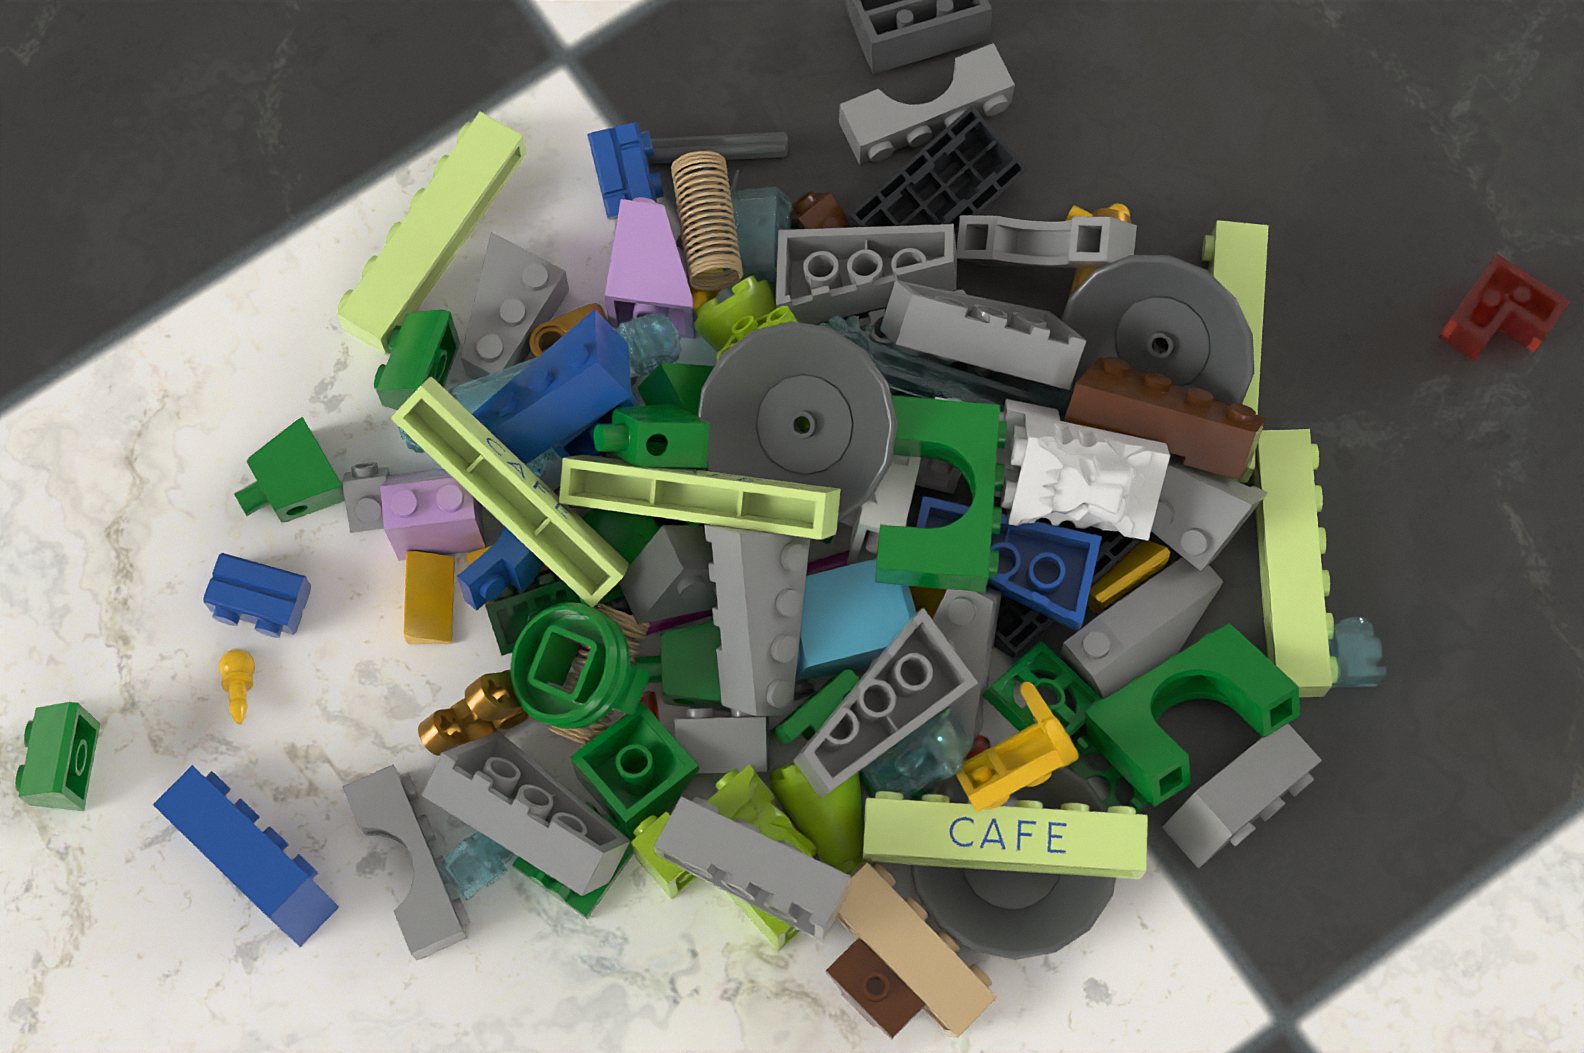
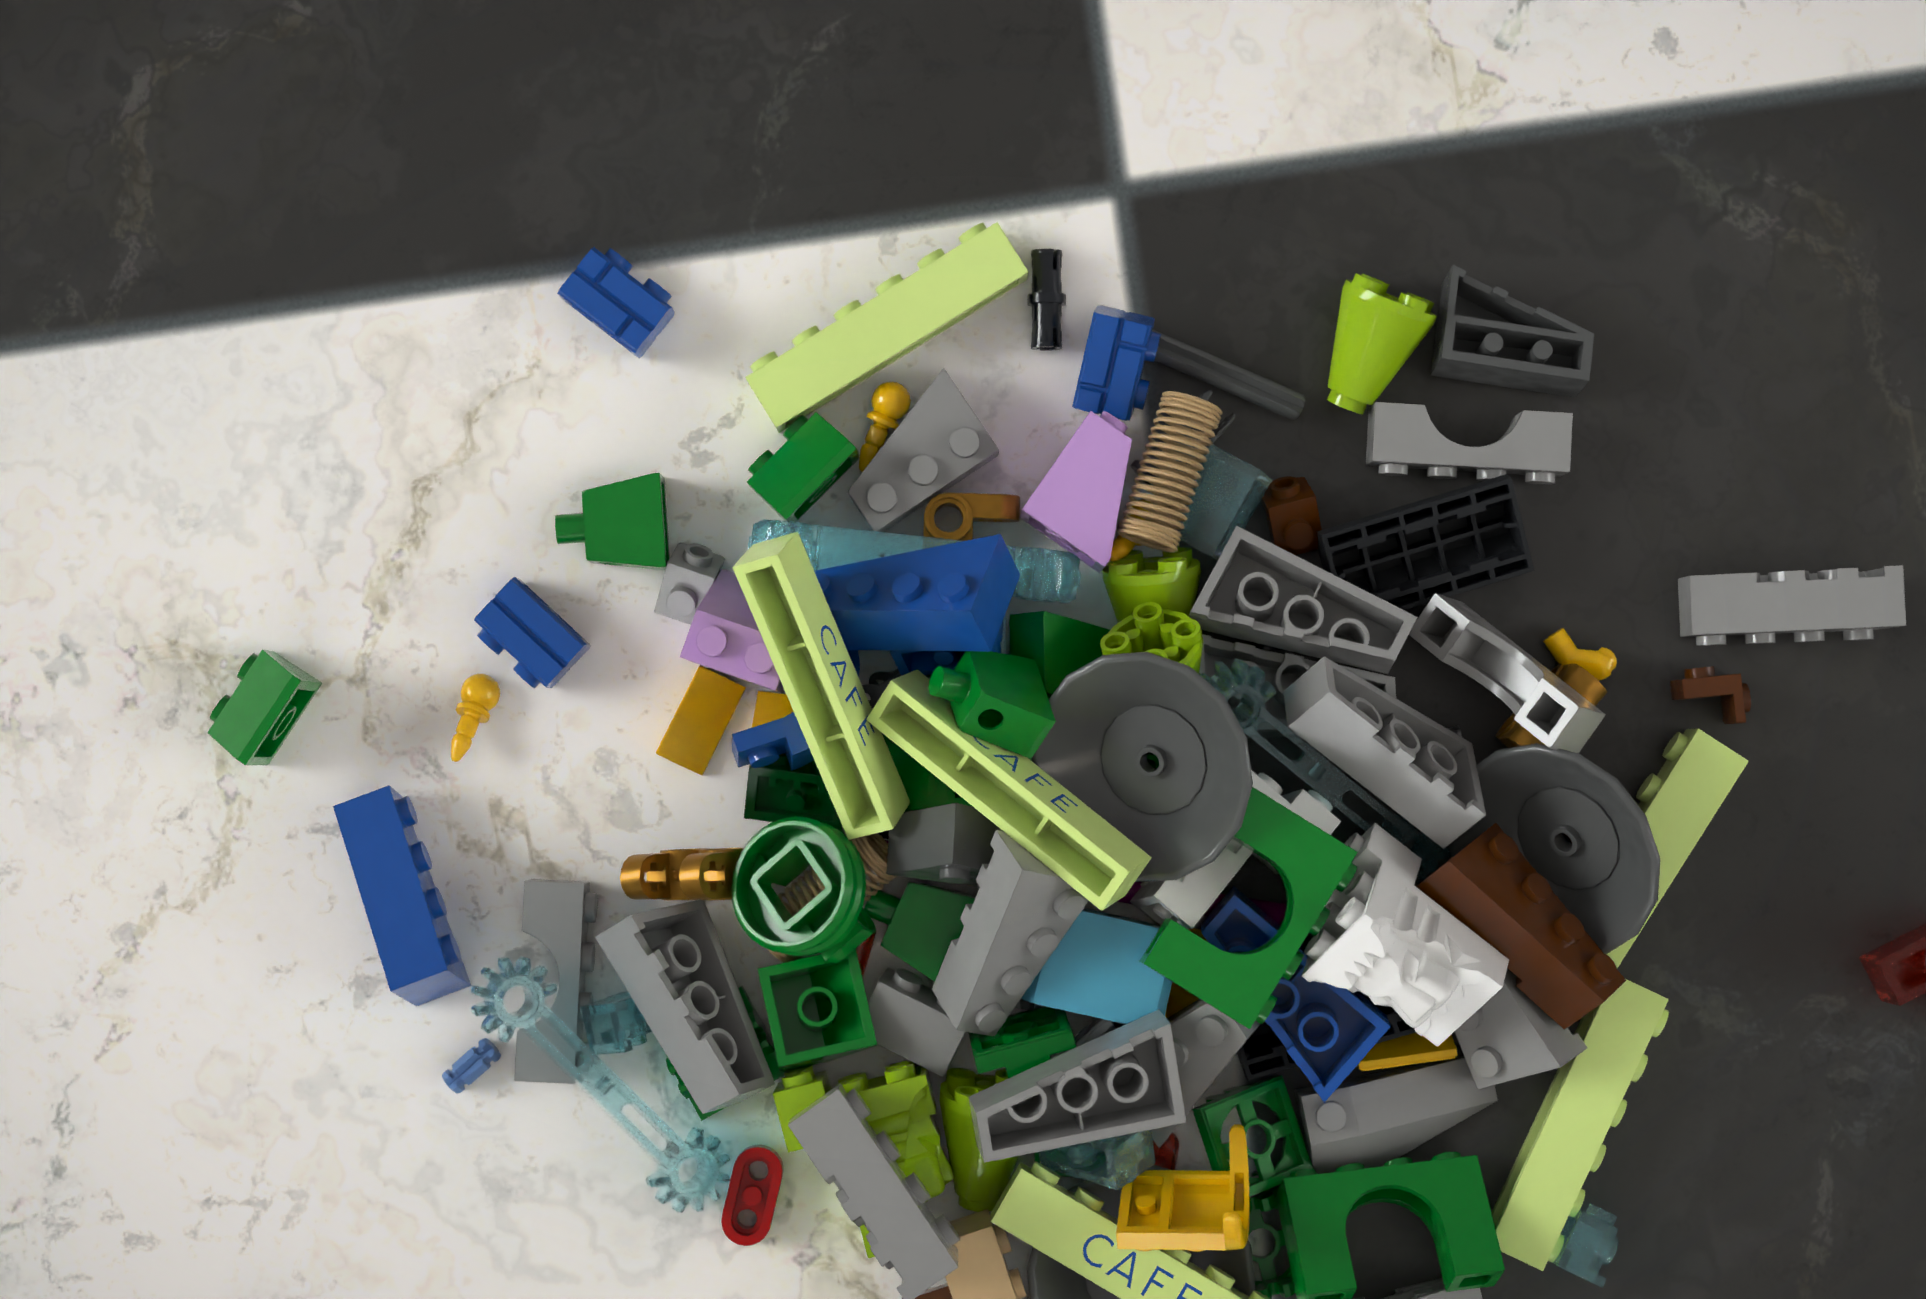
camera: 20 degrees right, 15 degrees up
(207, 311) = (617, 301): none -> blue brick
(369, 969) = (471, 1065): none -> medium blue piece
(462, 289) = (889, 404): none -> yellow bar
(485, 915) = (601, 1084): none -> clear light blue arm
(548, 157) = (1046, 299): none -> black pin
(659, 956) = (752, 1194): none -> red plate
(814, 62) = (1373, 340): none -> lime cone
(1220, 186) = (1704, 683): none -> reddish brown bracket
(1236, 101) = (1791, 604): none -> light grey wedge

